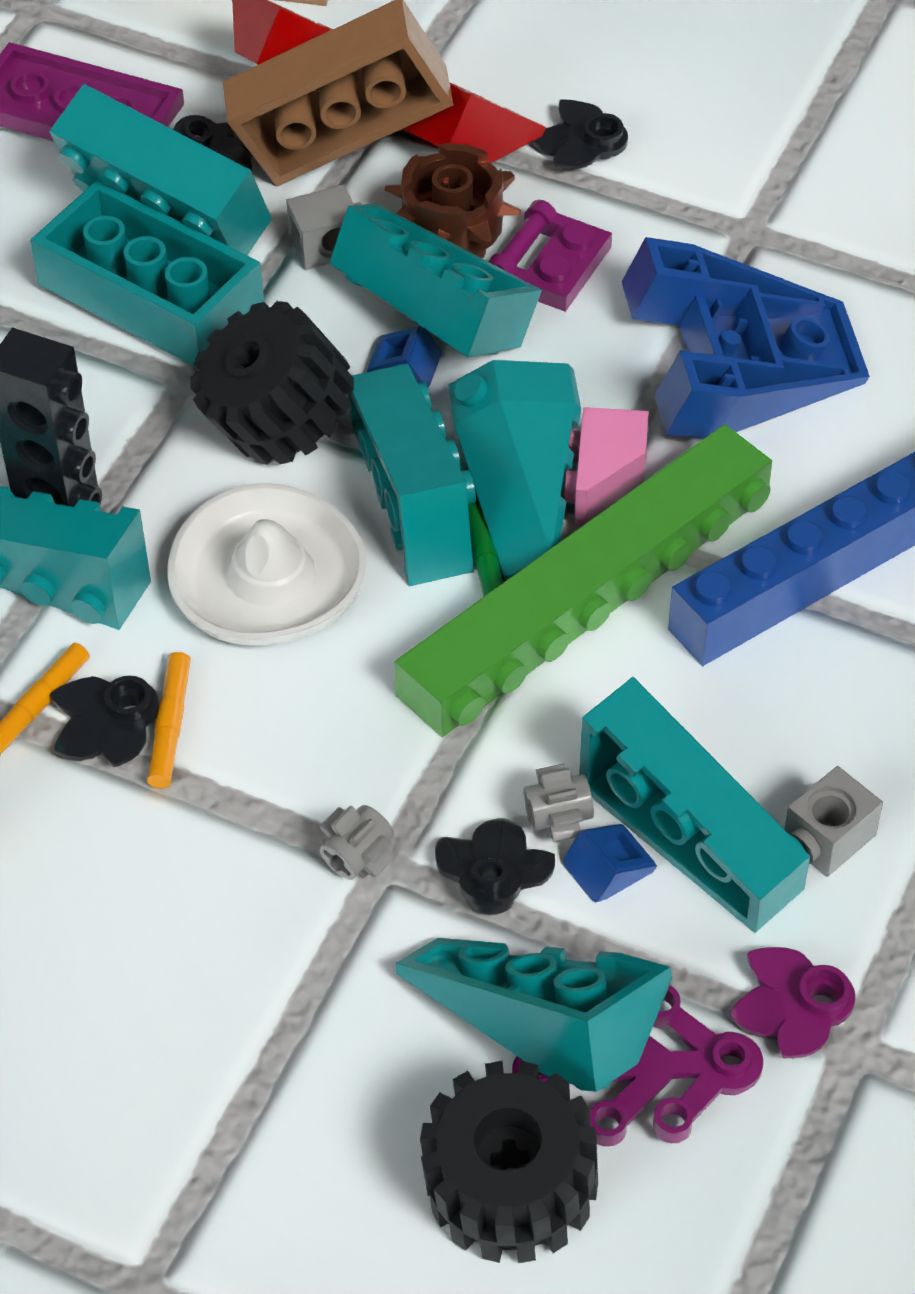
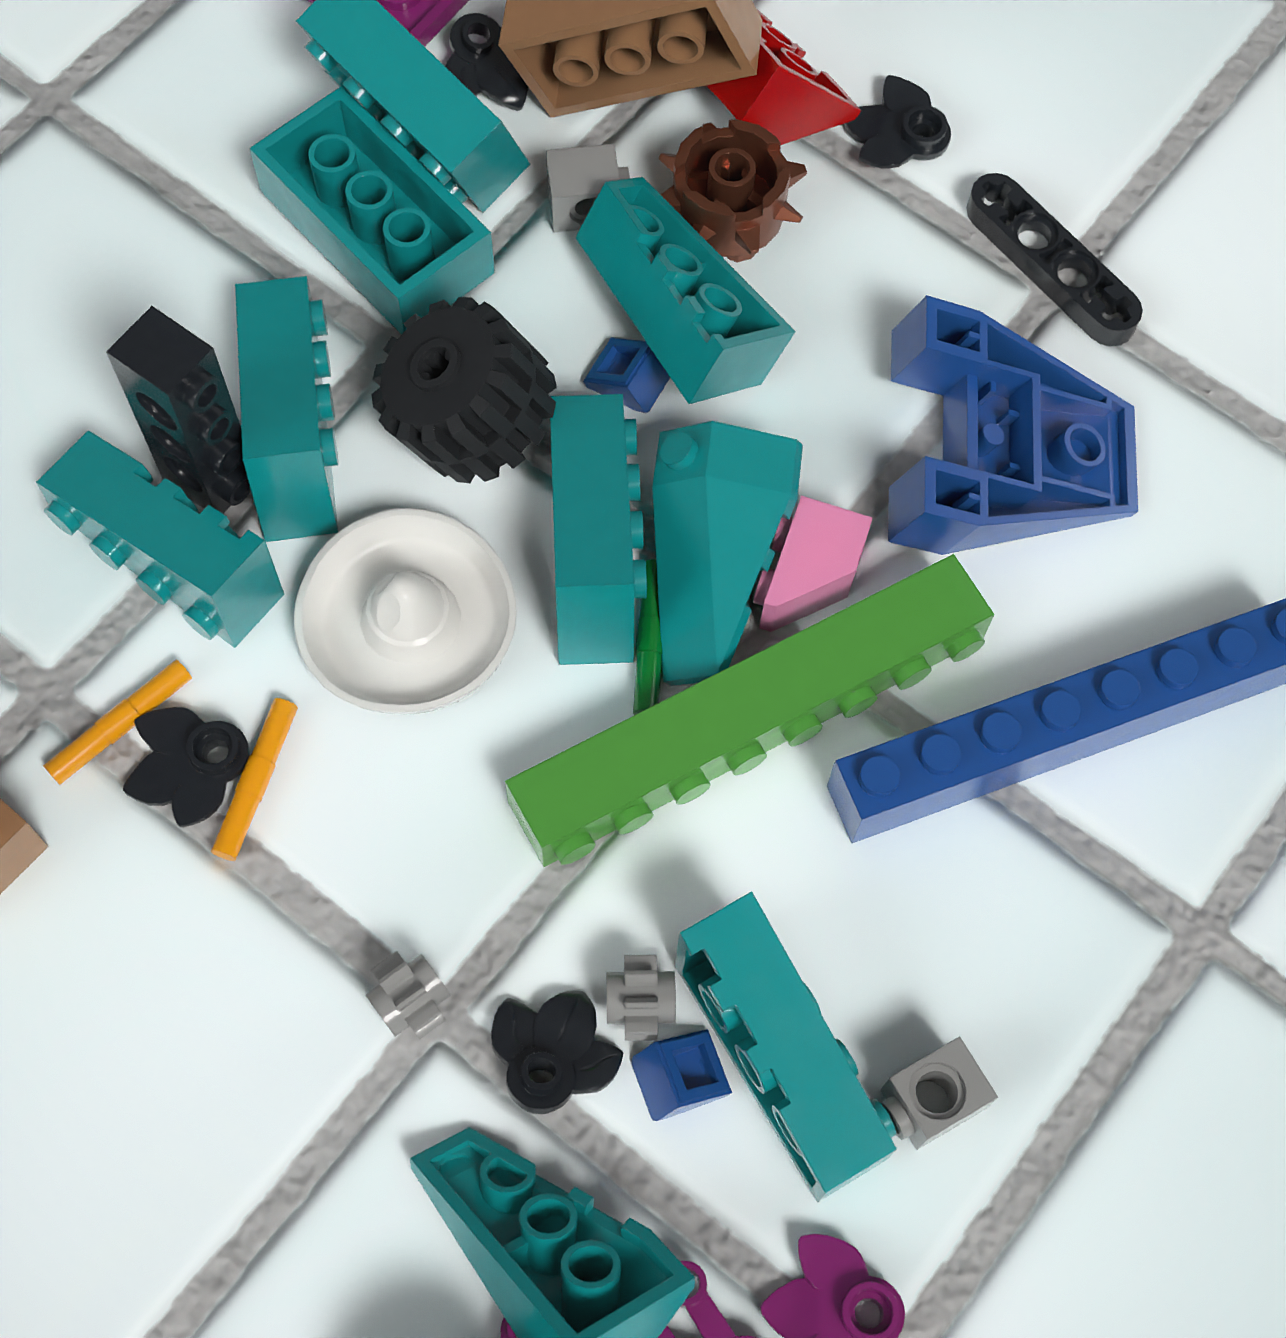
camera: 10 degrees right, 15 degrees up
(127, 436) = (286, 408): none -> teal wedge
(564, 261) = (835, 287): magenta plate -> none
(791, 235) = (1061, 252): none -> black beam

